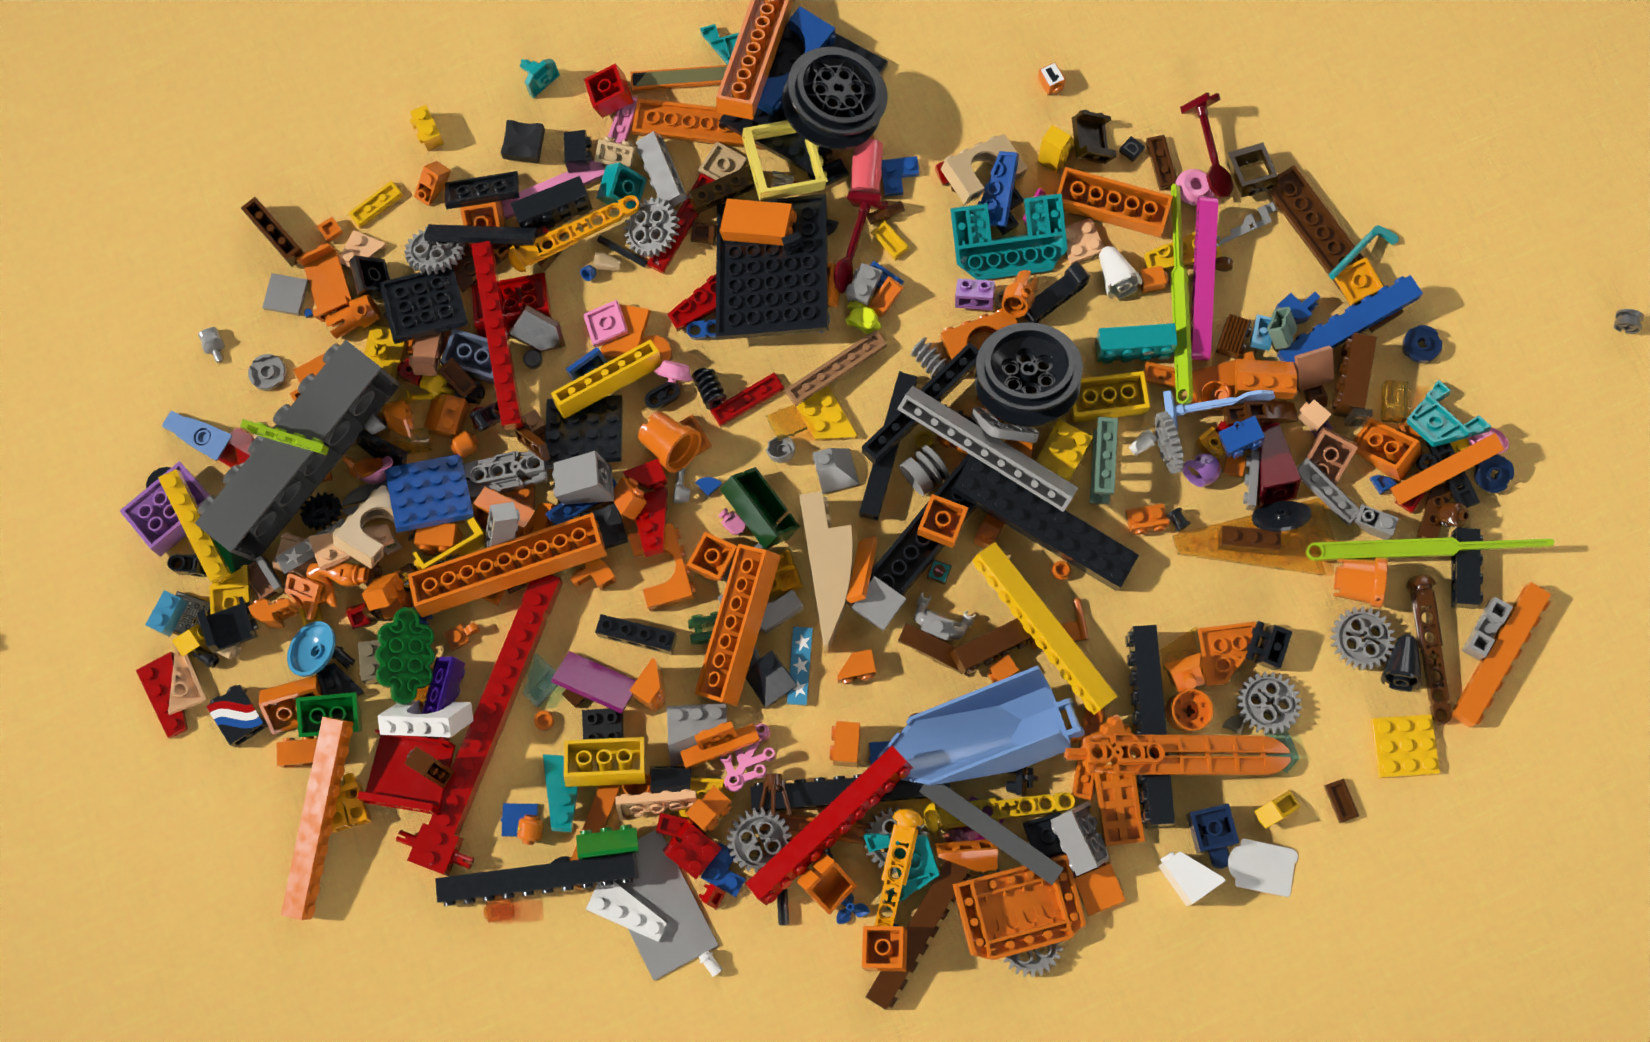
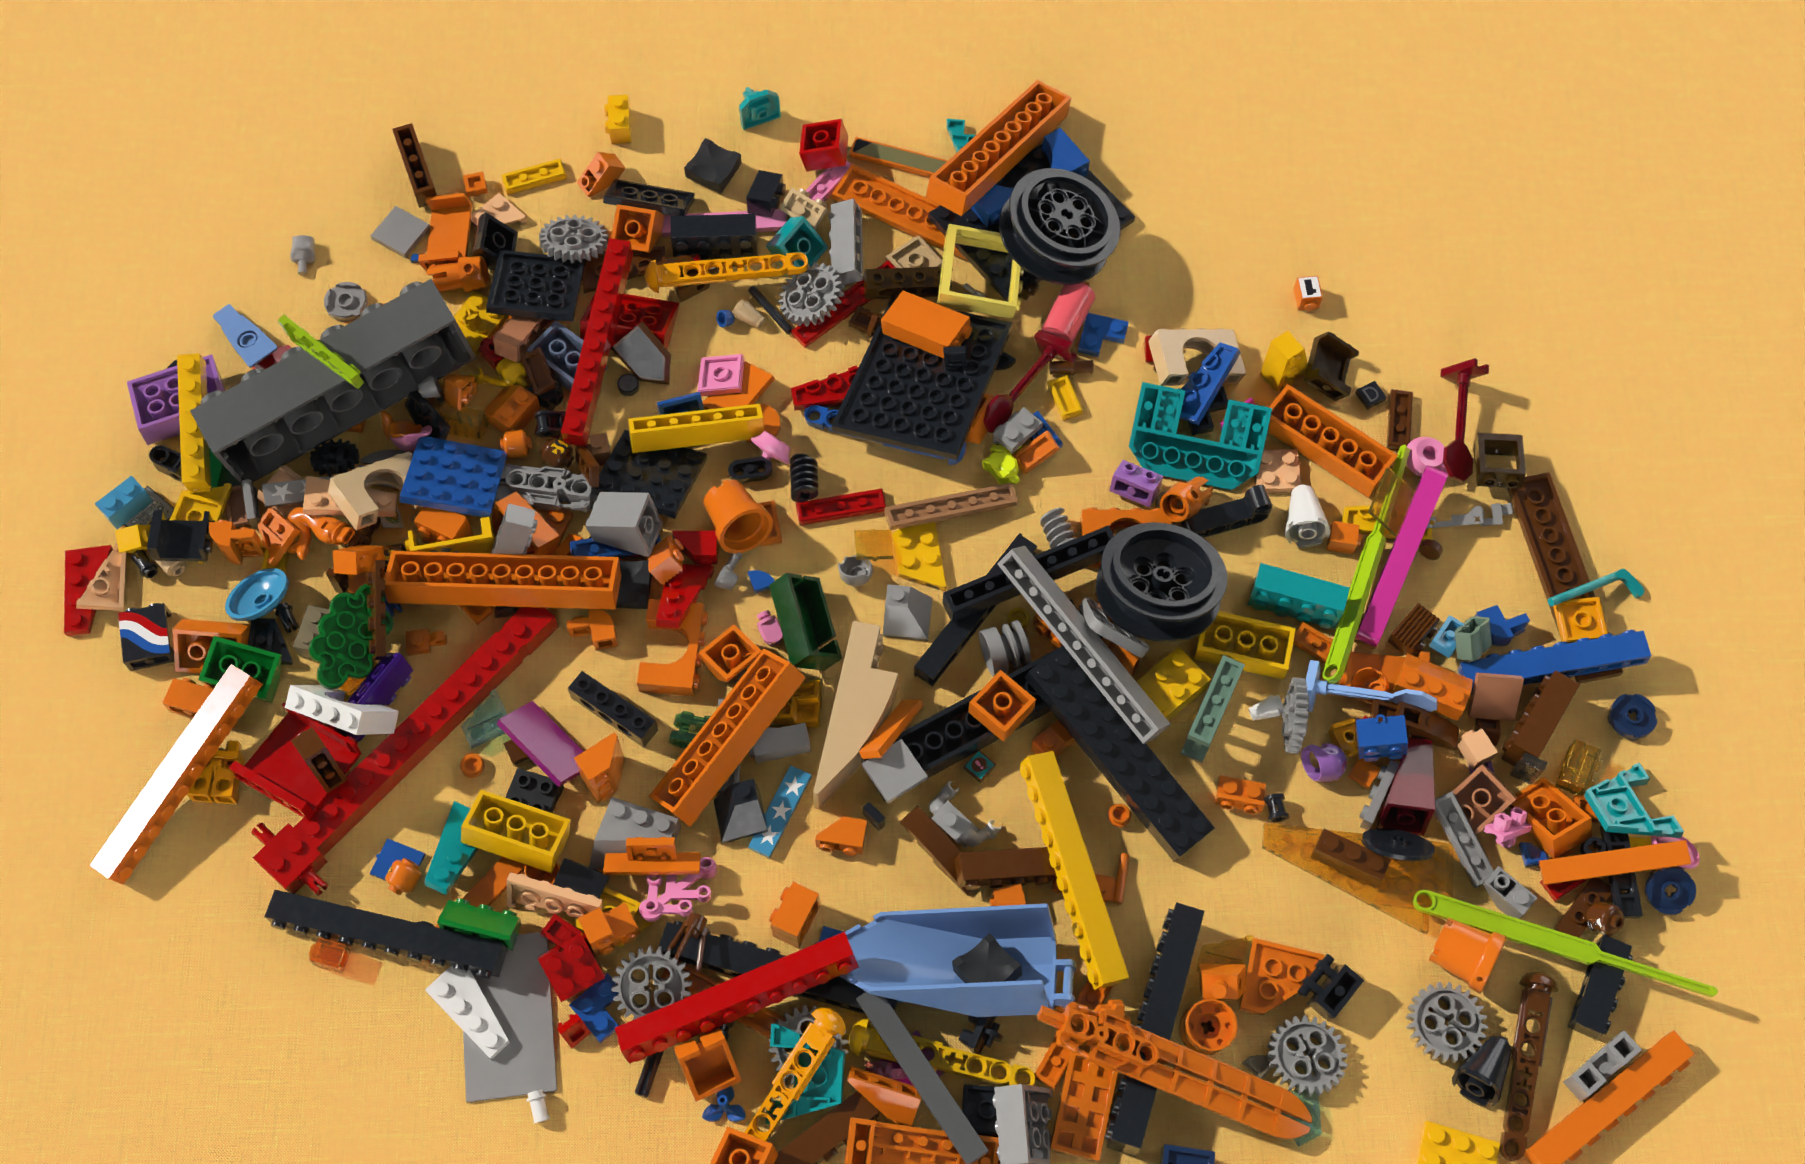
camera: 15 degrees right, 10 degrees down
(356, 616) = (321, 583): red slope -> none
(419, 628) = (378, 644): none -> reddish brown wing
(479, 234) = (639, 242): black tile -> none
(501, 440) = (557, 453): none -> reddish brown head
(835, 171) = (1030, 308): black tile -> none
(874, 642) = (874, 816): none -> black tile
(1007, 728) = (987, 963): none -> black brick
(1180, 237) = (1391, 501): none -> clear yellow piece
(1358, 469) = (1509, 827): none -> bright pink hips

